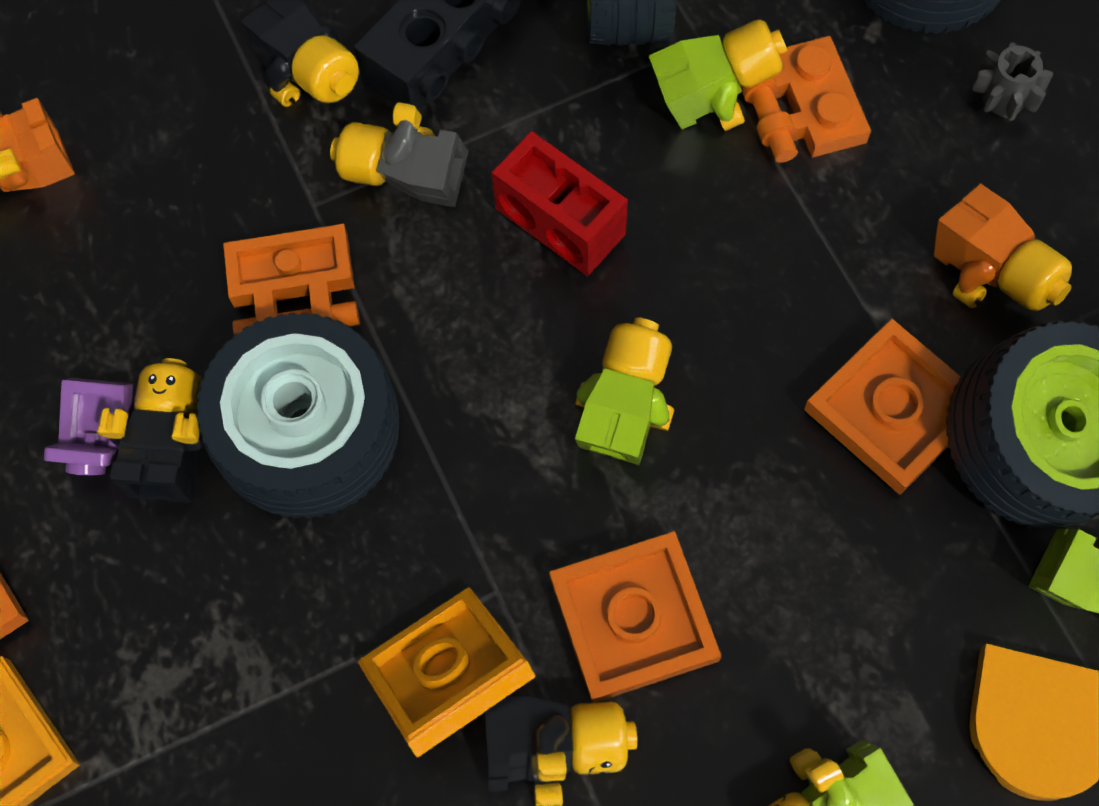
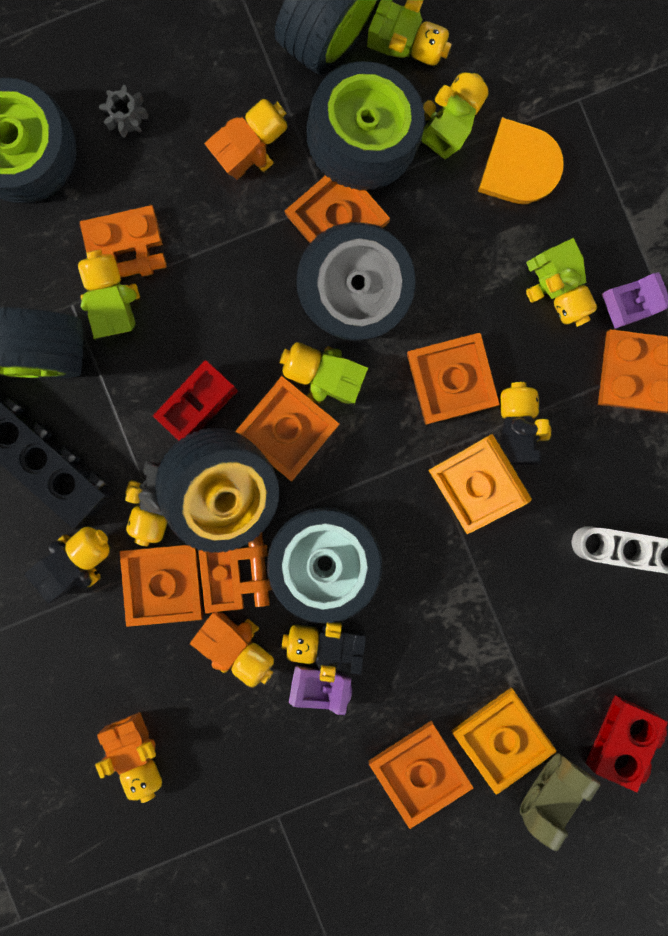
camera: 85 degrees left, 20 degrees up
(164, 281) = (232, 648): none -> orange piece
(269, 180) = (161, 585): none -> orange plate
(416, 229) = (216, 490): none -> wheel
(527, 350) = (288, 428): none -> orange plate
(794, 474) = (327, 274): none -> wheel

